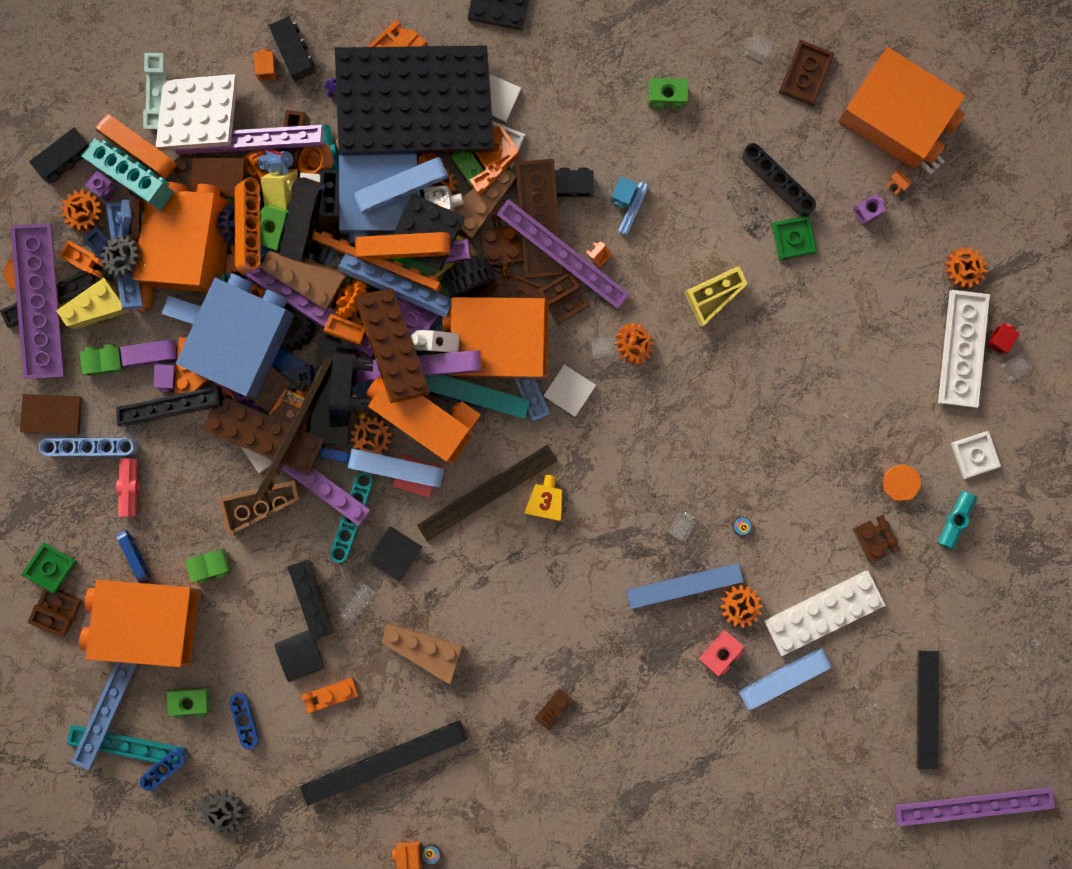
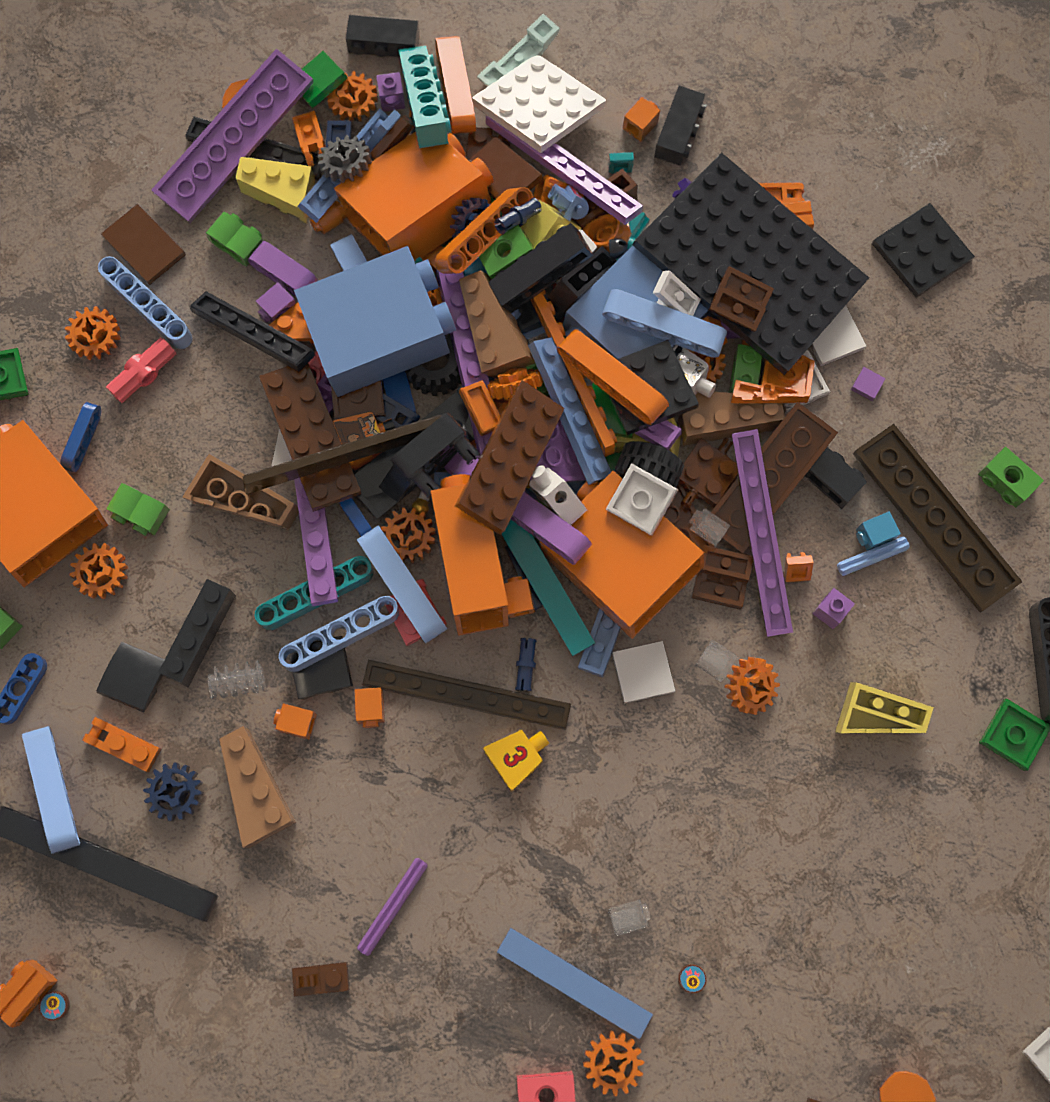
camera: 40 degrees right, 10 degrees down
(55, 213) = (326, 78): none -> green tile
(73, 498) = (82, 331): none -> orange gear
(217, 612) = (96, 560): none -> orange gear
(259, 200) = (518, 216): none -> dark blue pin
(279, 104) = (620, 161): none -> teal tile
(317, 753) = (50, 790): none -> light blue beam
(331, 163) = (617, 248): none -> black hinge
(374, 688) = (162, 795): none -> dark blue gear
(382, 534) = (332, 645): none -> light blue beam
(392, 163) = (675, 294): none -> white slope
(410, 594) = (295, 721): none -> orange brick
(430, 131) = (741, 299): none -> reddish brown slope
(442, 549) = (369, 707): none -> orange brick
(483, 300) = (641, 499): none -> white tile
(503, 446) = (526, 664): none -> dark blue pin
(531, 278) = (708, 526): none -> clear brick
(542, 109) = (868, 384): none -> medium lavender tile
(555, 638) = (392, 907): none -> medium lavender axle
(638, 259) = (833, 608): none -> medium lavender brick
(647, 153) = (937, 518): none -> dark brown plate

